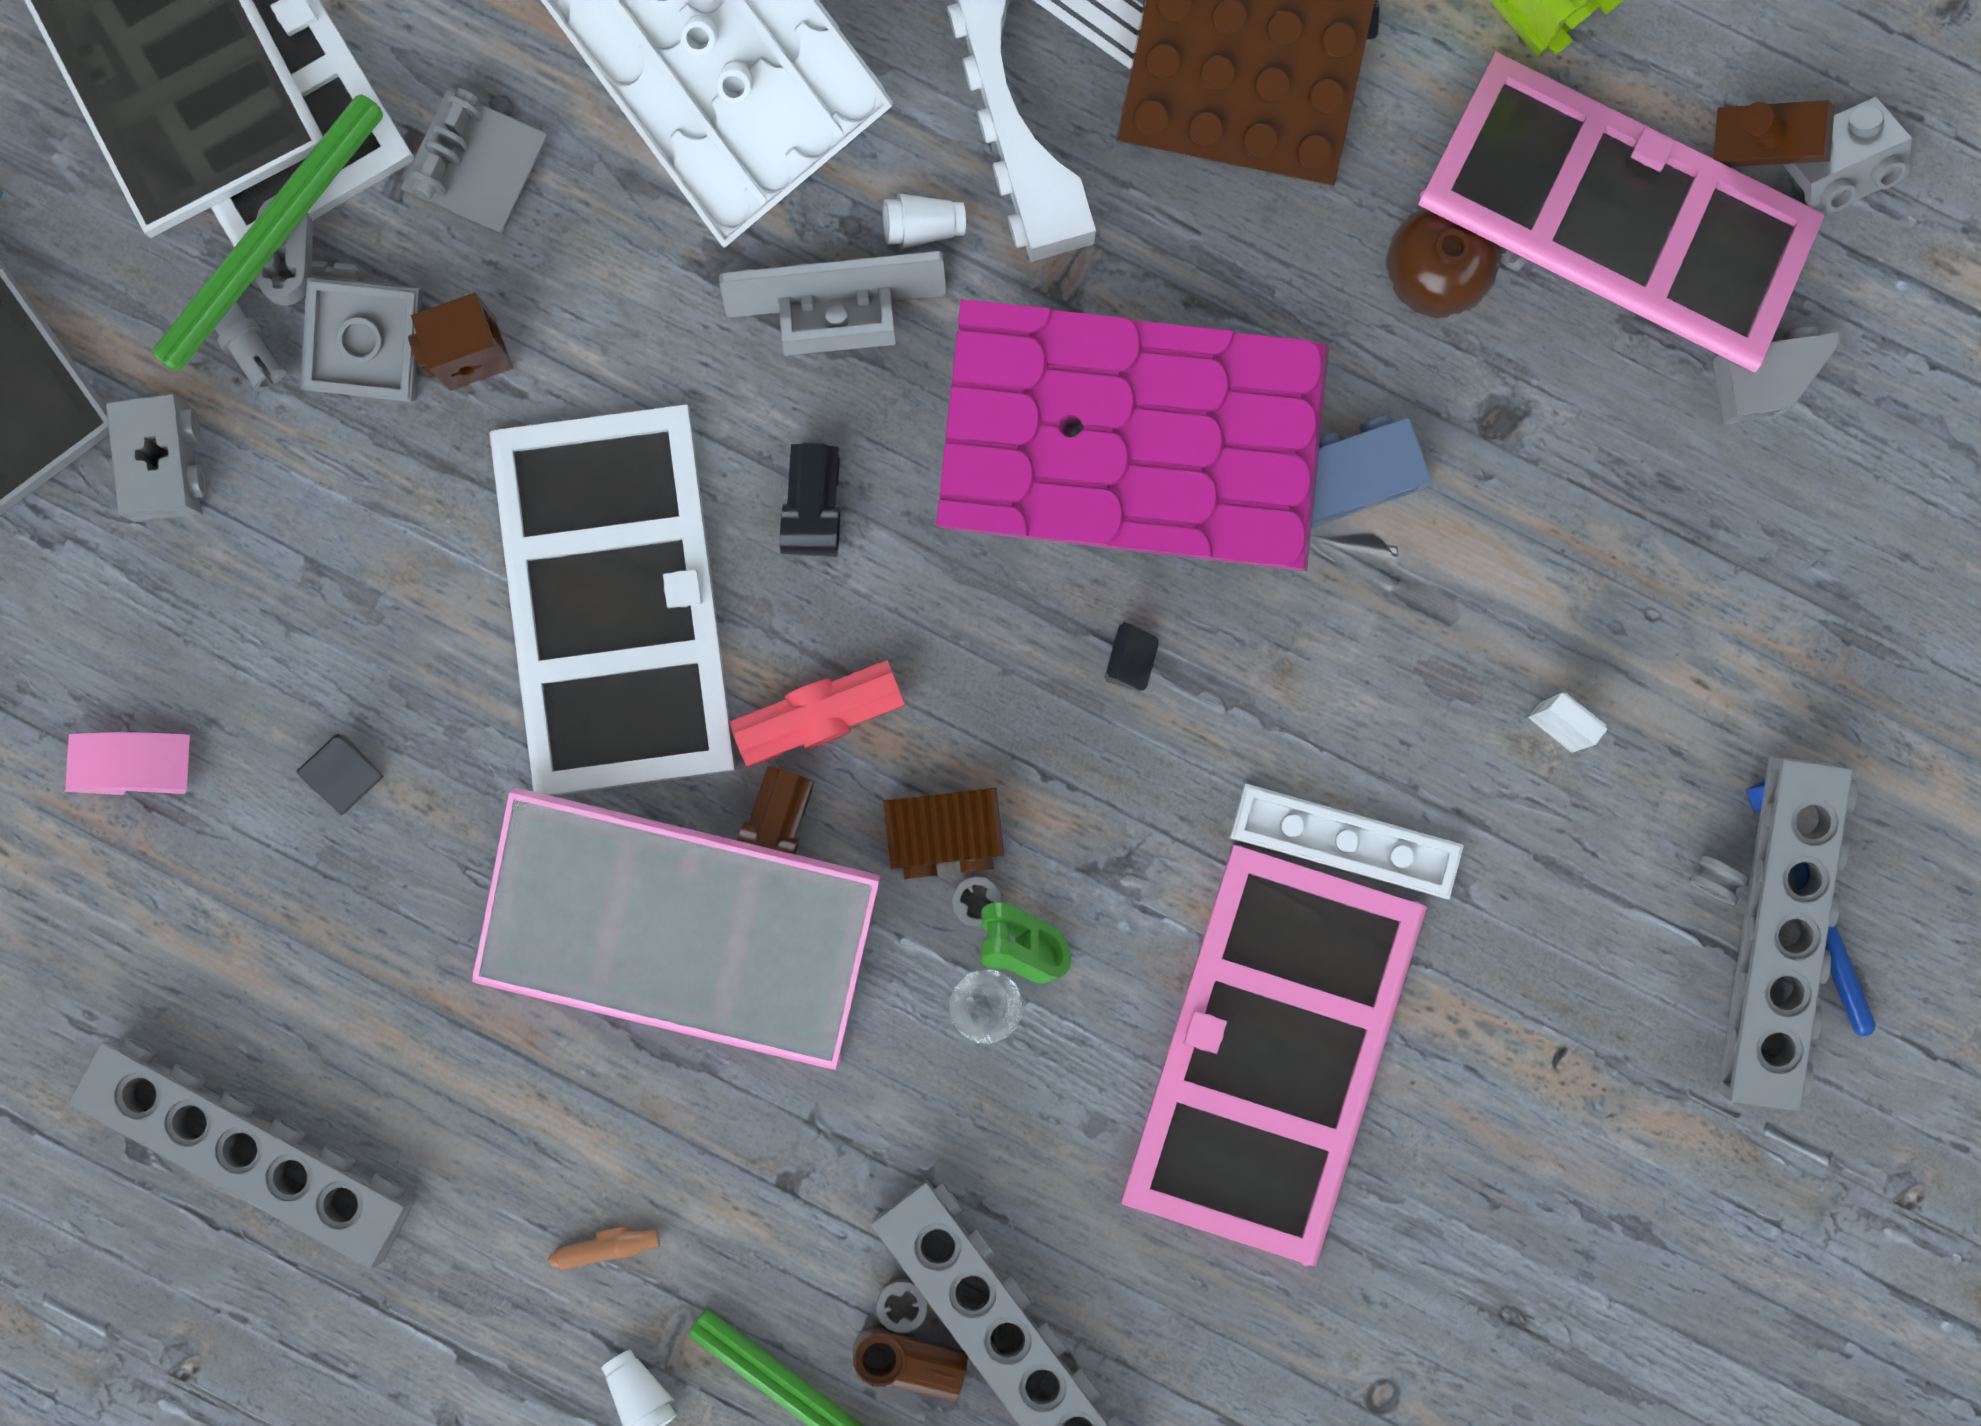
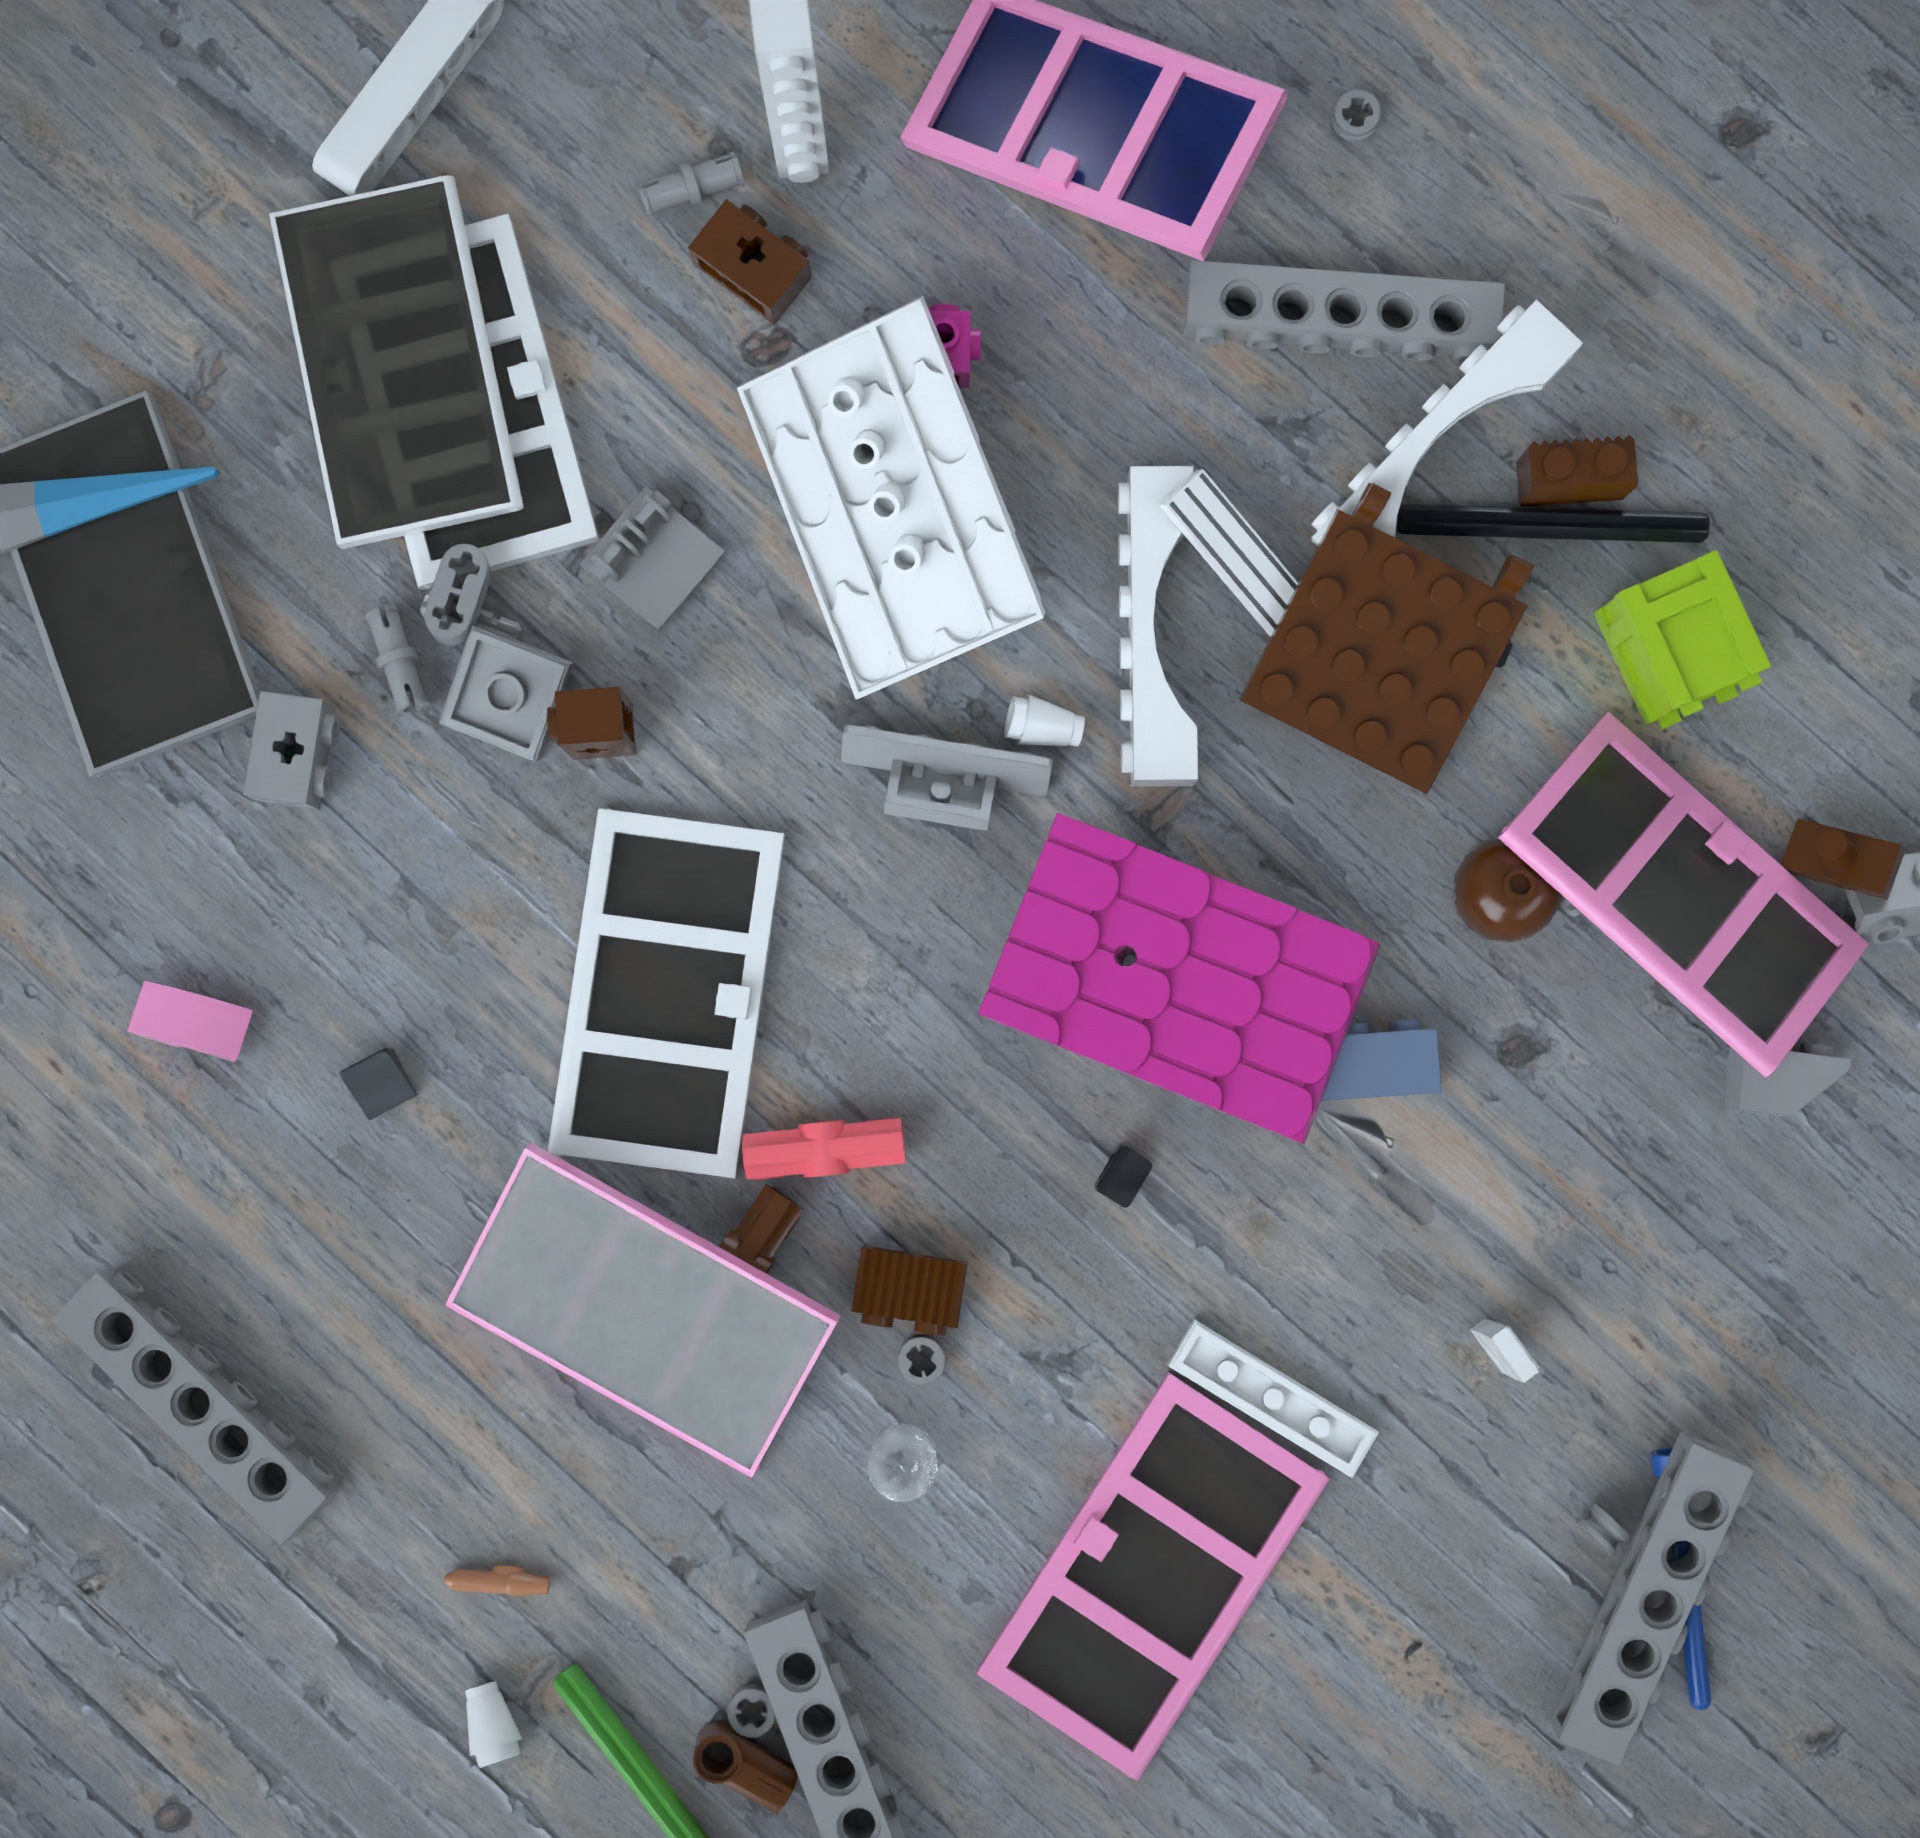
camera: 15 degrees right, 0 degrees up
(268, 233) = (447, 577): bright green axle -> none
(811, 517) = (868, 965): black piece -> none
(1038, 949) = (967, 1419): bright green plate -> none

